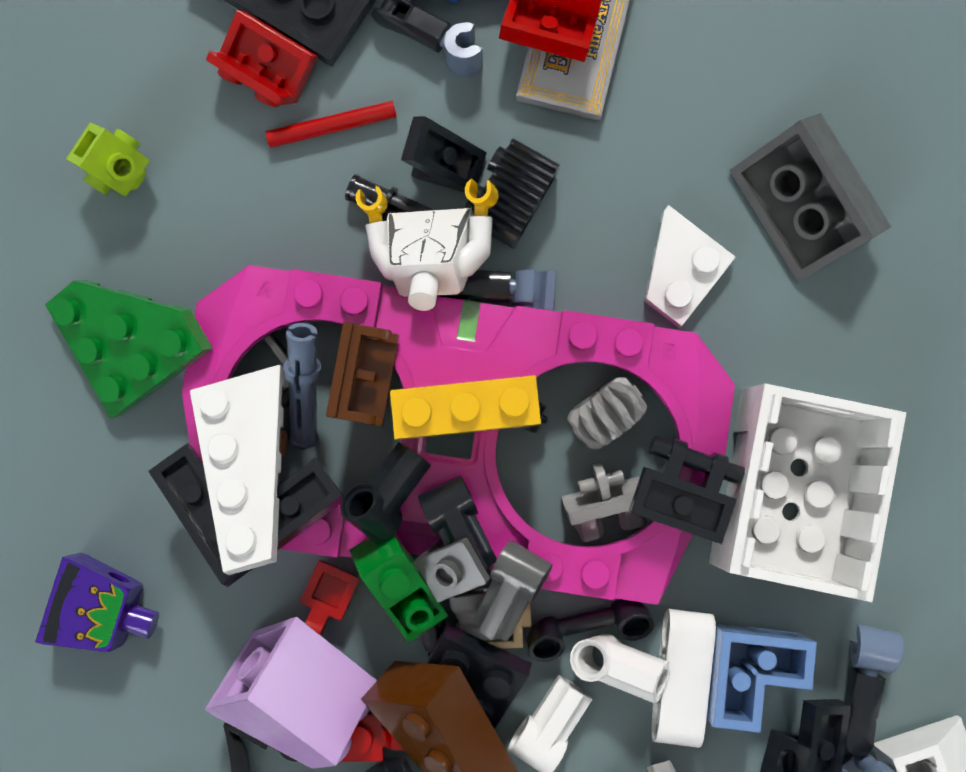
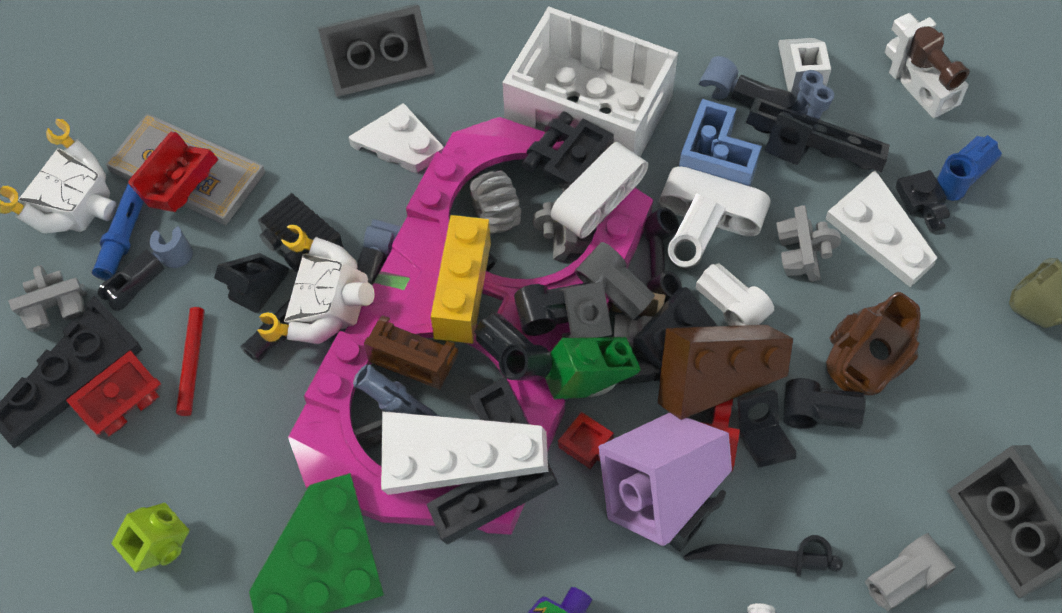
camera: 75 degrees left, 25 degrees down
(636, 544) = (599, 190): none -> white beam

